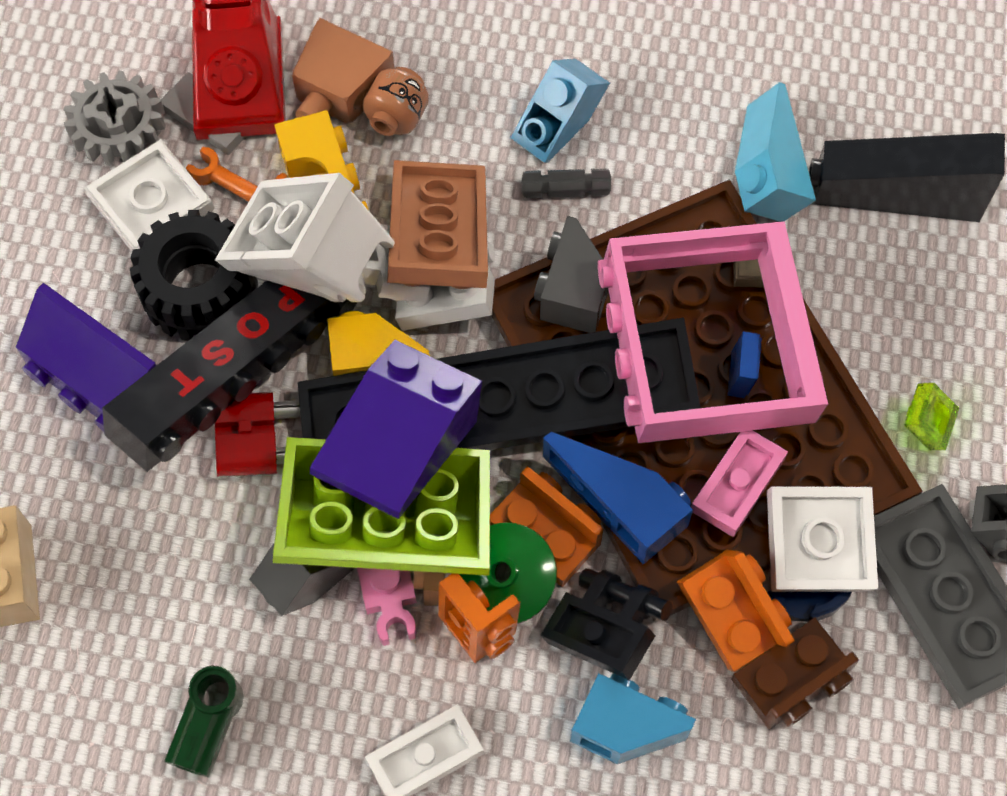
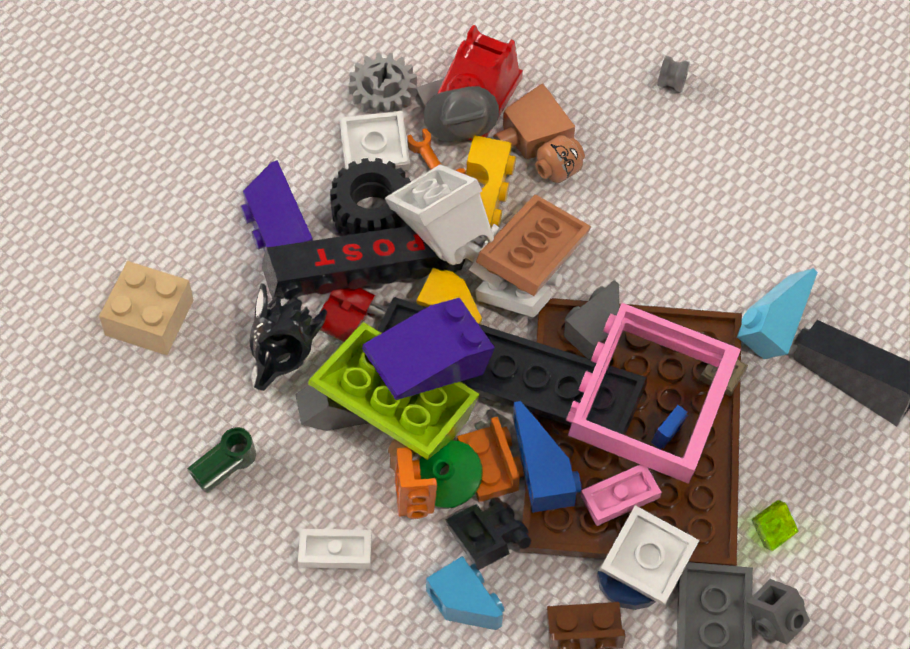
camera: 30 degrees right, 5 degrees down
(179, 511) = (279, 334): none -> black piece
(241, 105) = (461, 113): none -> dark grey piece
(388, 592) = (371, 447): bright pink plate -> none
(559, 108) = (662, 214): dark azure slope -> none
(566, 183) = (637, 263): dark grey axle -> none
(736, 608) = (570, 567): orange bracket -> none

